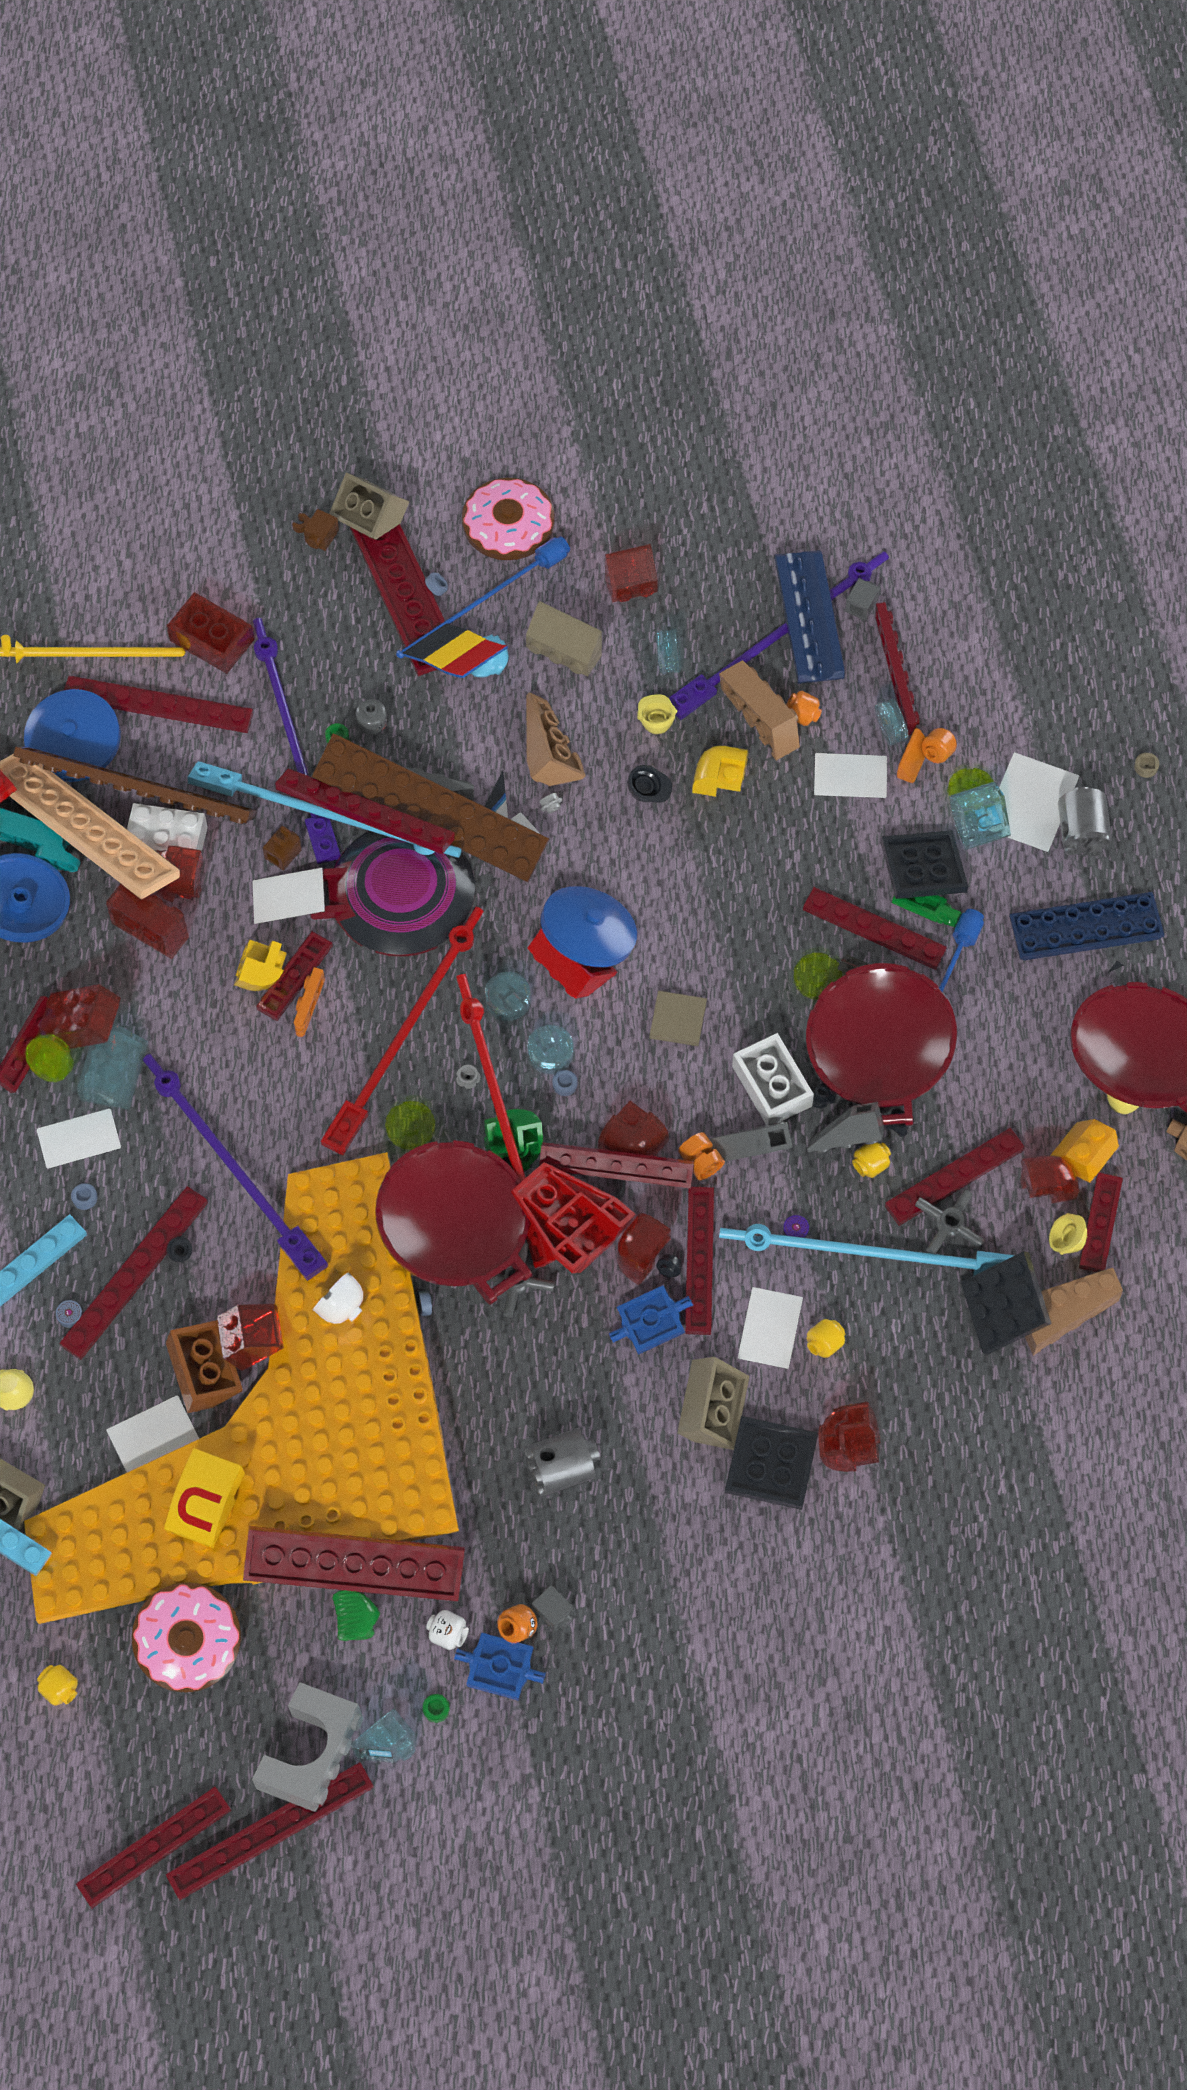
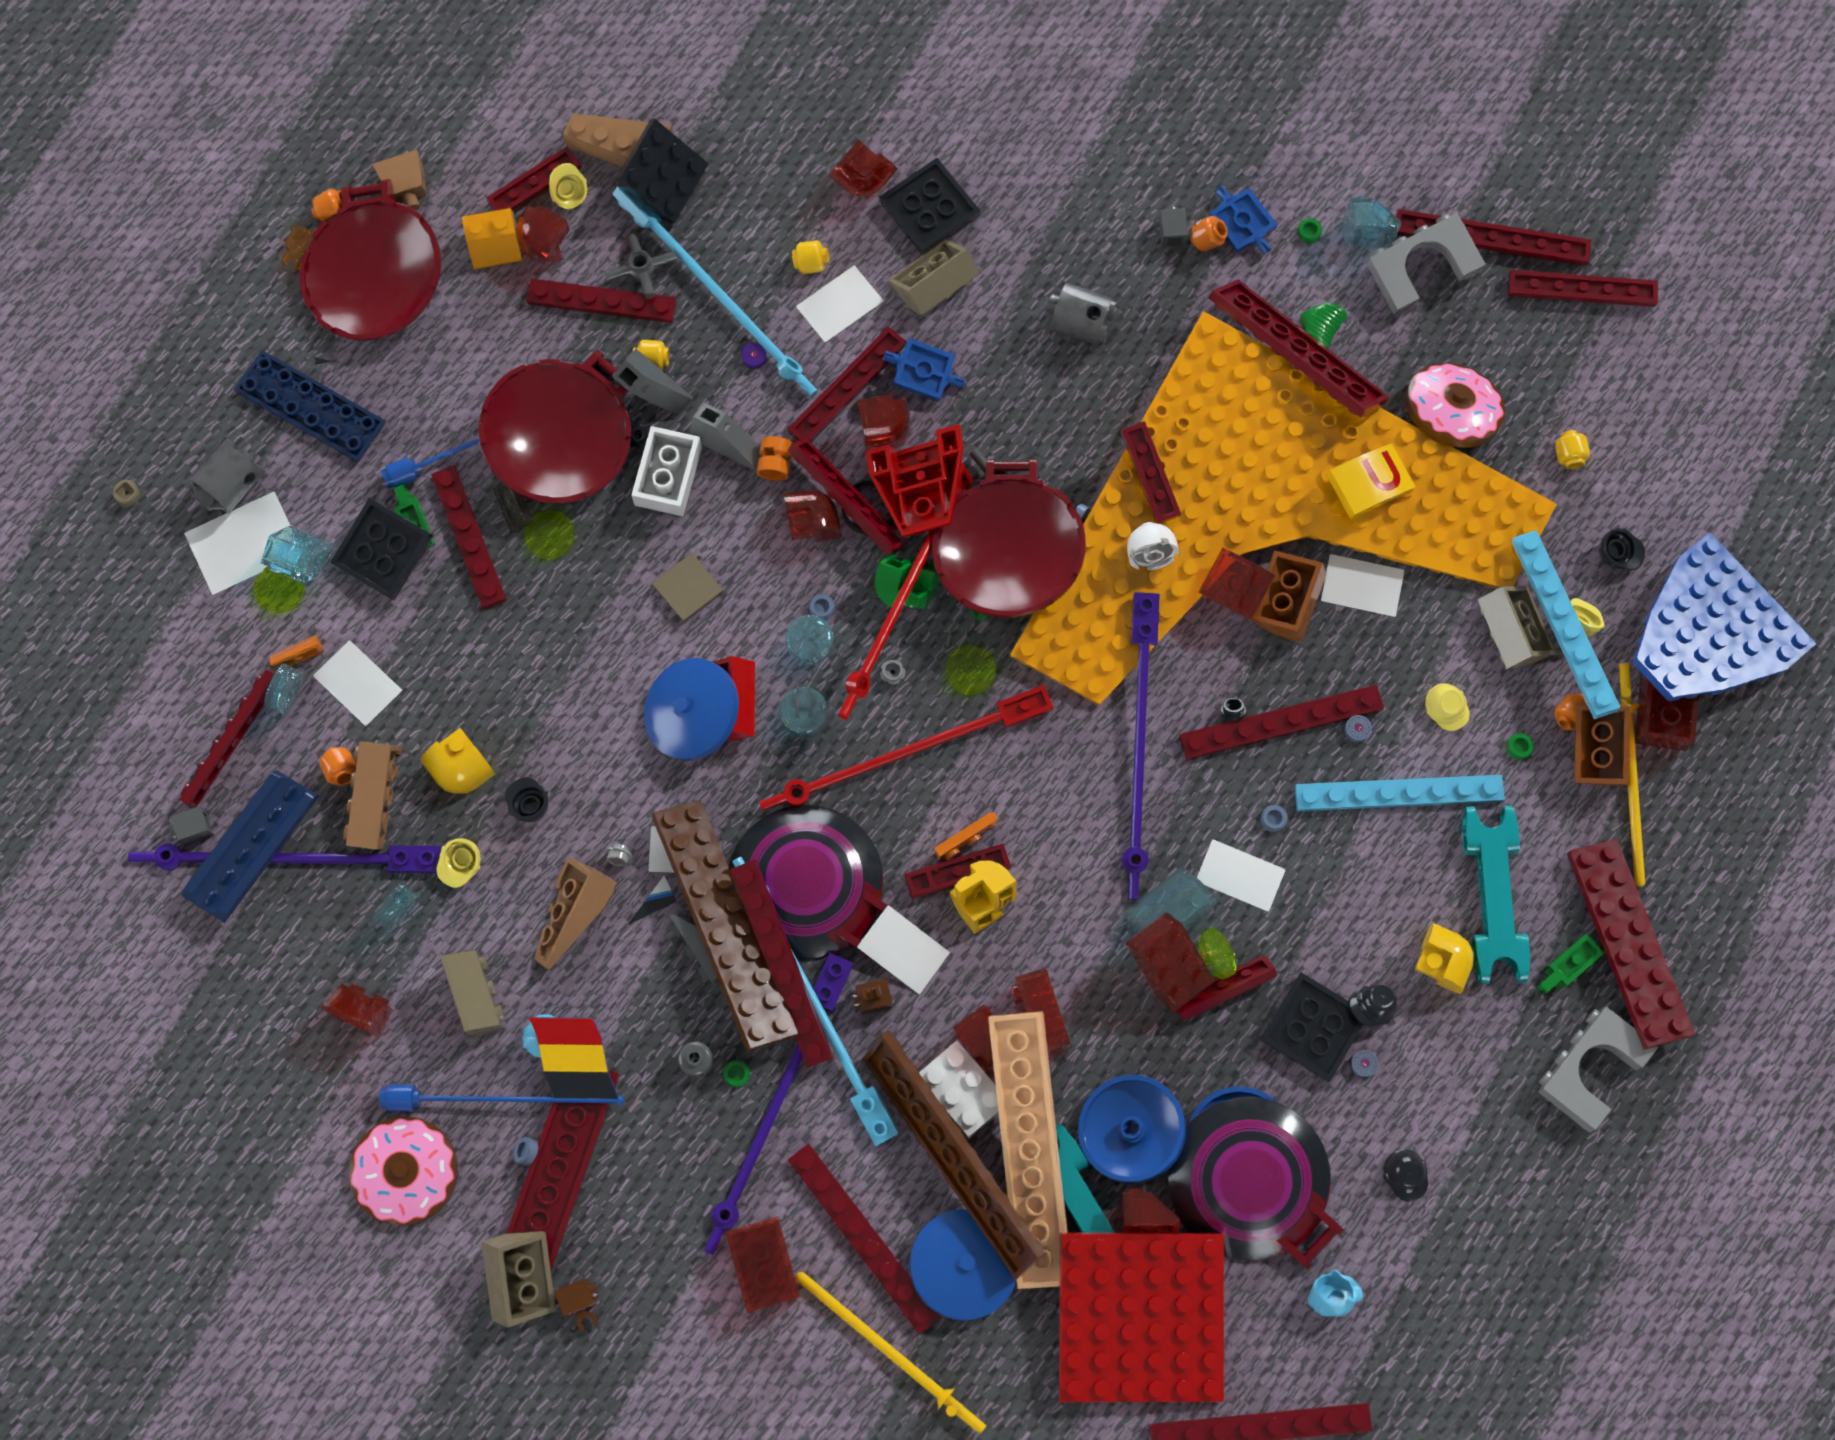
camera: 140 degrees left, 10 degrees up
(389, 1357) = (1150, 472): none -> dark red plate
(447, 1630) = (1260, 270): white head -> none
(939, 745) = (266, 640): orange head -> none

